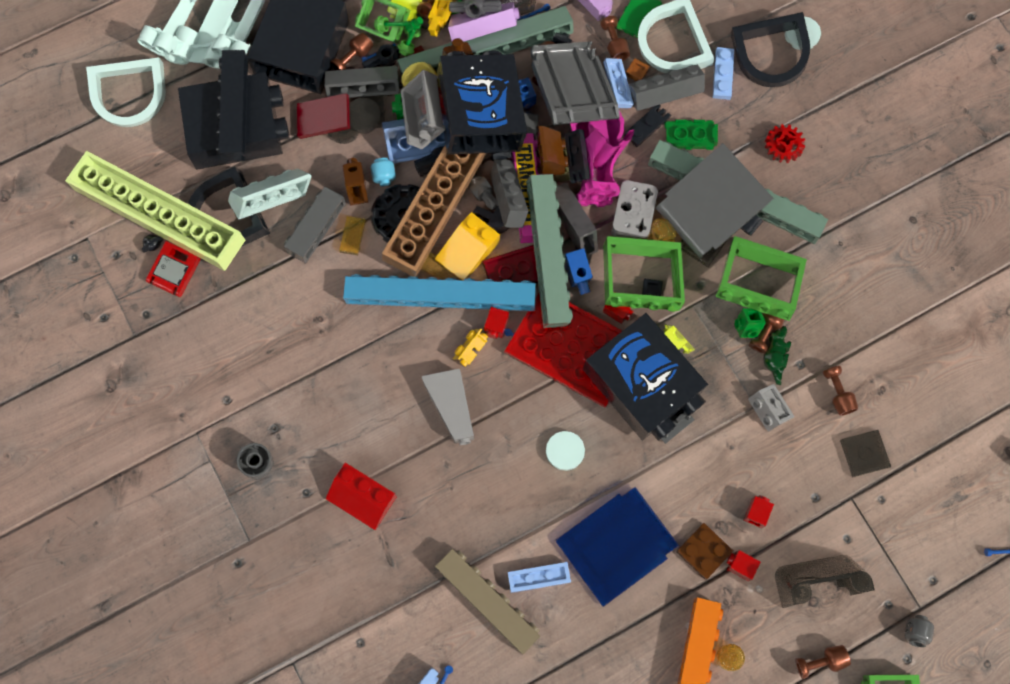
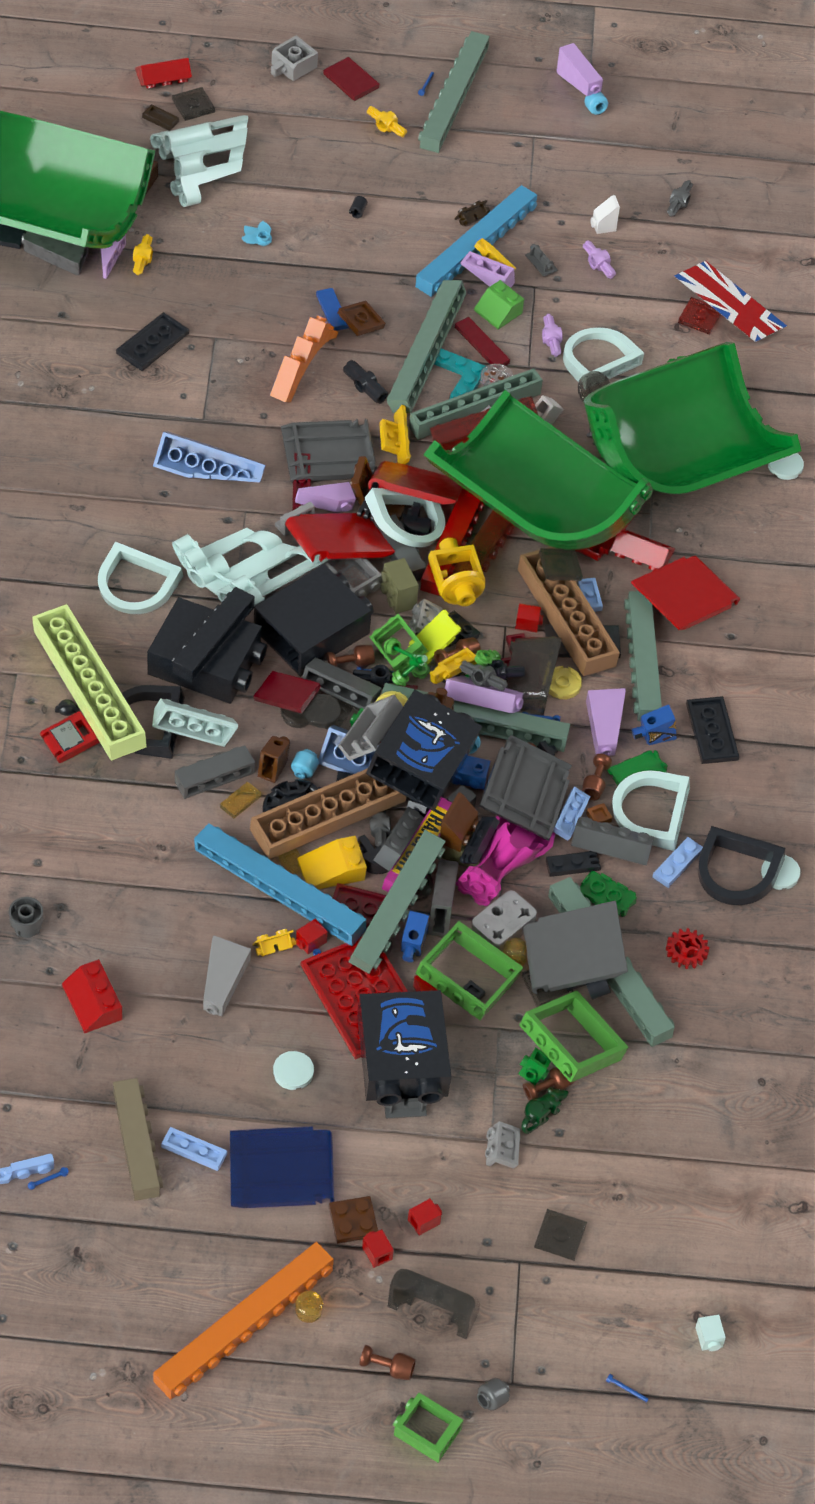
camera: 30 degrees right, 20 degrees down
(678, 339) = (458, 1036): neon yellow piece -> none
(844, 402) = (572, 1178): copper piece -> none

